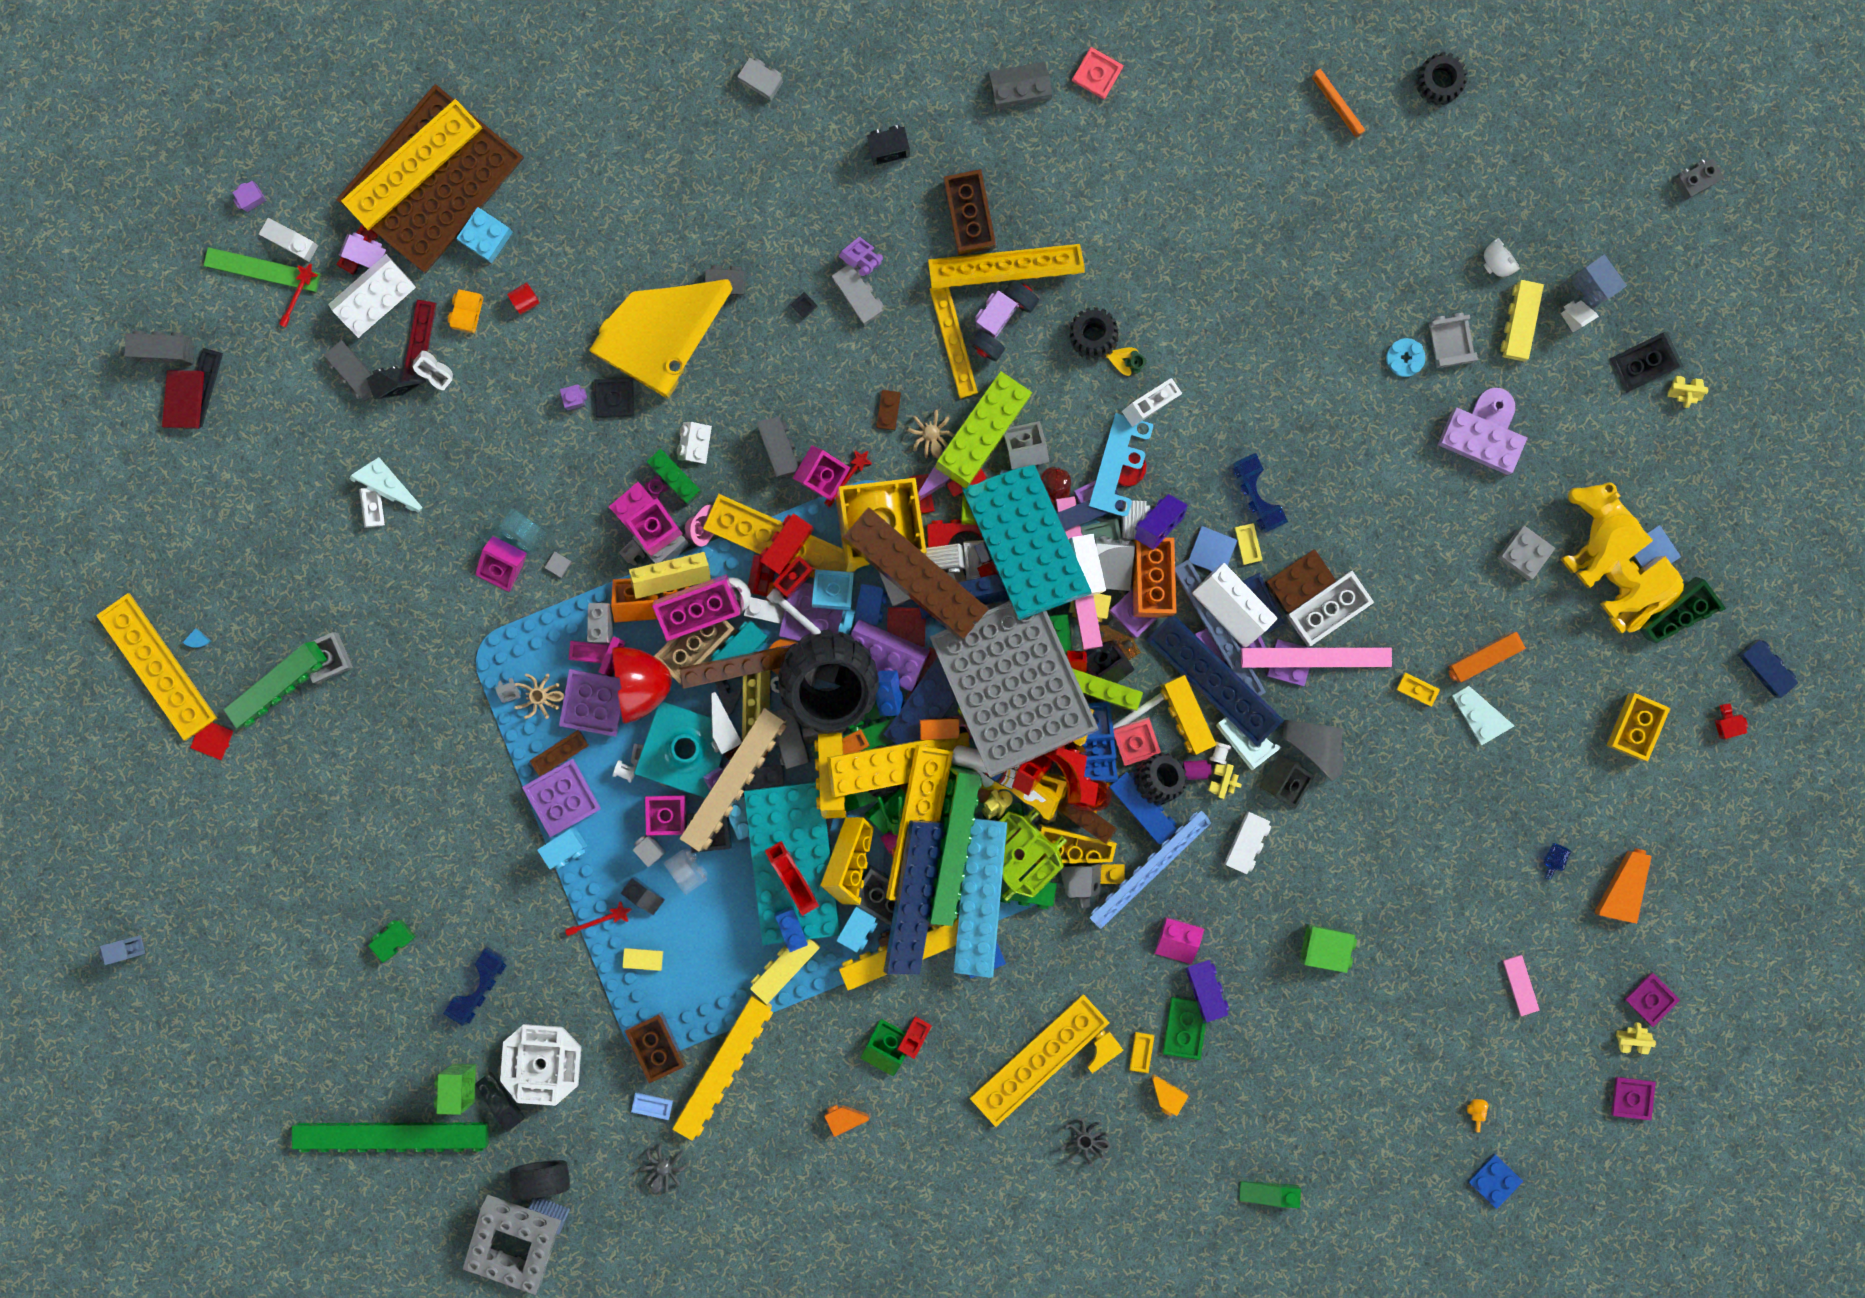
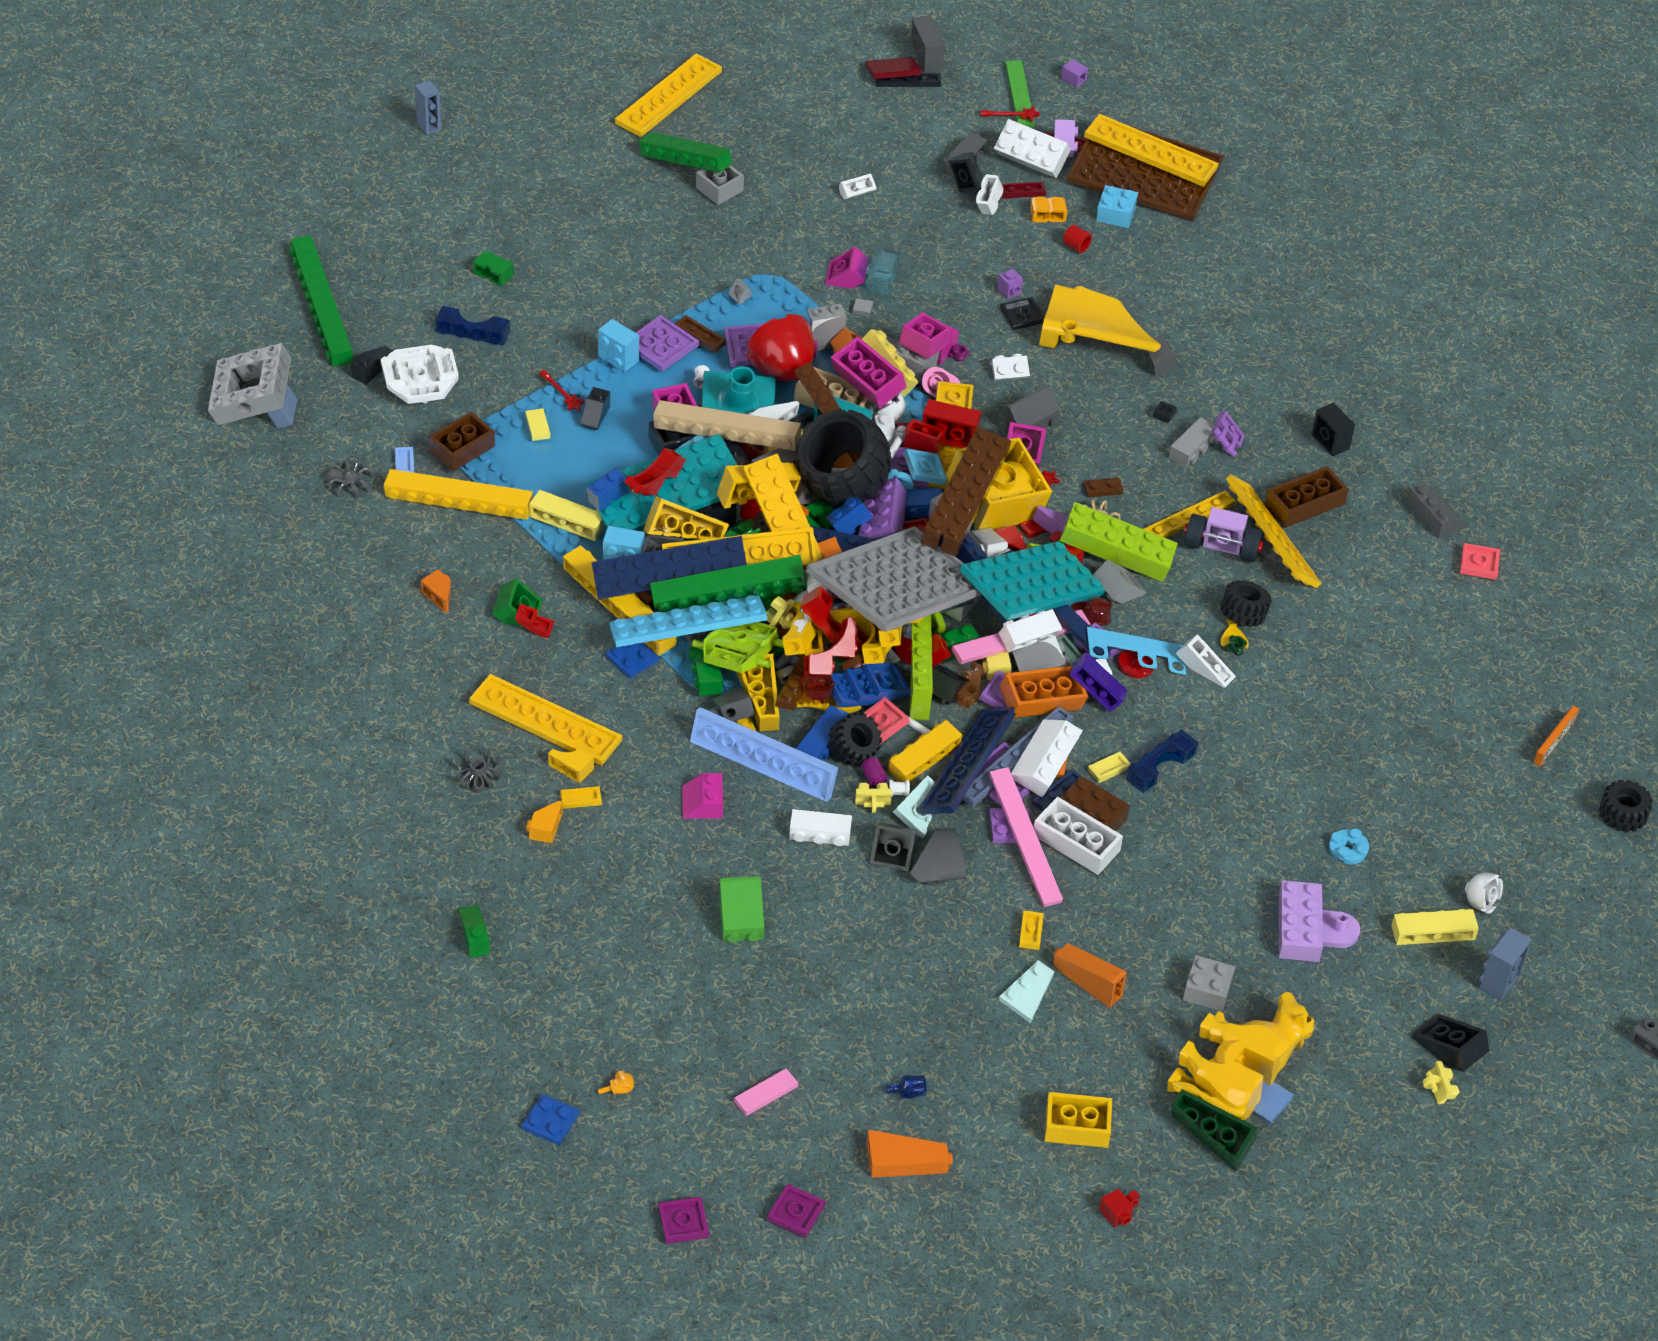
camera: 70 degrees right, 40 degrees down
(196, 639) = (701, 113): dark azure tile -> none
(212, 740) = (621, 139): red piece -> none
(288, 239) = (1051, 104): white slope -> none
(381, 480) = (882, 188): light aqua wing -> none
(455, 1089) = (381, 314): bright green brick -> none
(538, 696) = (744, 311): tan animal -> none
(539, 1179) = (316, 388): black tyre -> none
(648, 850) = (638, 400): light grey brick -> none
(674, 476) = (974, 358): green brick -> none
(686, 871) = (629, 426): clear brick -> none
(760, 78) = (1342, 344): light grey brick -> none
(1184, 1029) = (617, 826): green tile -> none
(1207, 991) = (661, 825): dark purple brick -> none
(1211, 549) = (1092, 742): medium blue tile -> none
(1452, 341) = (1385, 877): light grey panel -> none
(1578, 315) = (1462, 969): white slope -> none
(1635, 1036) = (750, 1202): light yellow hips -> none
(1768, 668) = (1193, 1227): dark blue brick -> none

